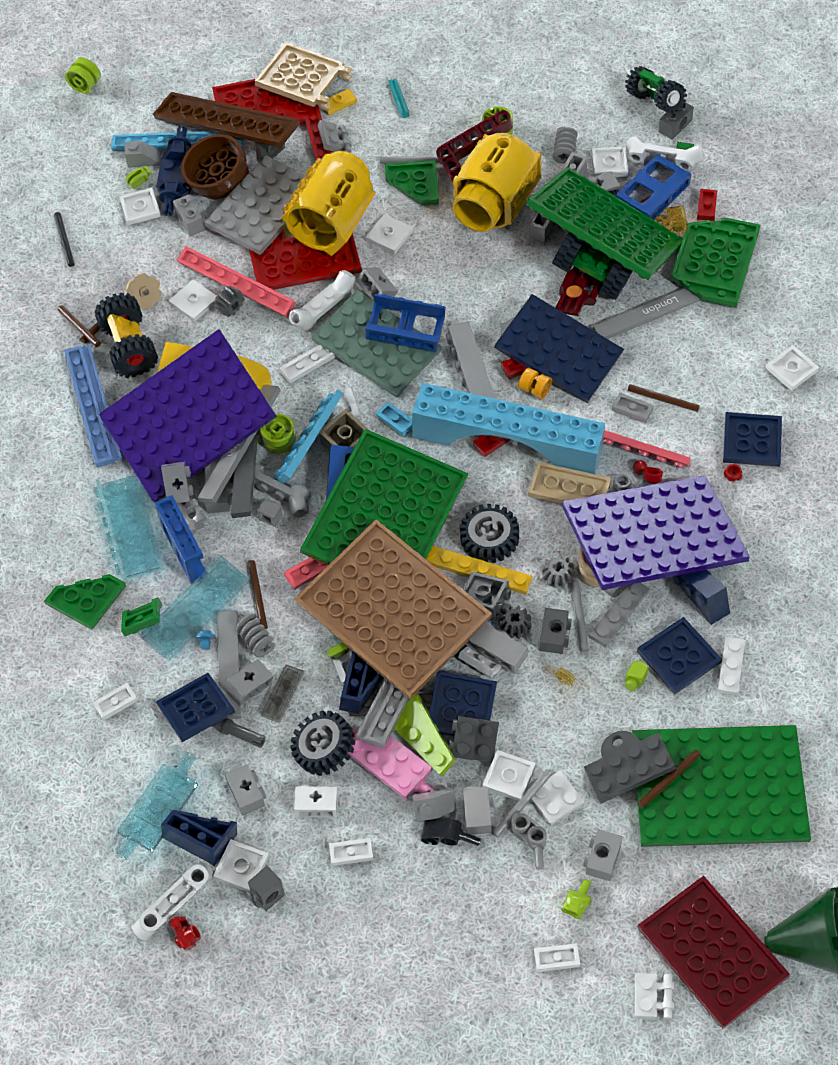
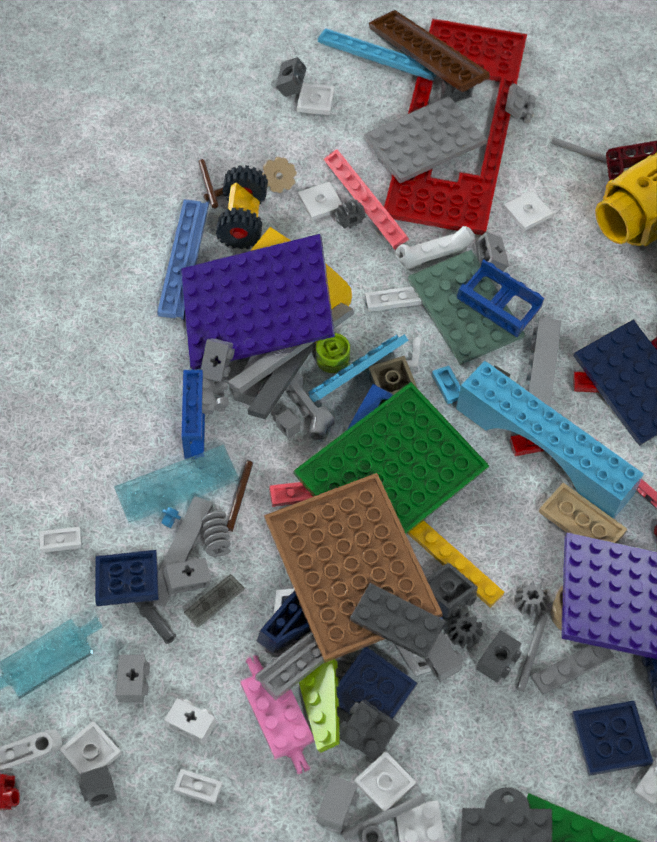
camera: 20 degrees right, 0 degrees up
(65, 243) = (236, 102): black bar -> none
(86, 599) = (86, 432): green plate -> none
(106, 194) = (291, 77): none -> dark grey brick
(128, 527) = (156, 383): clear light blue bracket -> none
(138, 176) = (327, 72): lime arm -> none
(141, 154) = (340, 54): light grey slope -> none
(141, 617) = (122, 471): green plate -> none
(170, 175) = (362, 80): dark blue plate -> none
(188, 215) = (354, 123): light grey brick -> none
(198, 835) = (67, 703): dark blue wedge -> none
(214, 166) = (397, 88): reddish brown wheel -> none
(302, 75) = (517, 37): tan plate -> none
(328, 751) = (226, 675): wheel -> none
(329, 201) = (482, 158): yellow piece -> none
(337, 650) = (282, 582): lime plate -> none
(340, 101) = (540, 74): yellow plate -> none
(399, 98) = (597, 91): teal axle -> none
(415, 180) = (575, 171): green plate -> none
(434, 804) = (297, 777): light grey slope -> none
(446, 831) = (296, 811): black beam -> none
(456, 635) = (397, 621): none -> dark grey plate
(490, 521) = (475, 543): wheel -> none
(535, 383) = (596, 406): light orange wheel -> none
(565, 676) = (488, 707): clear yellow tile -> none
(622, 478) = (636, 534): light grey plate -> none
(636, 675) = (558, 738): lime arm -> none

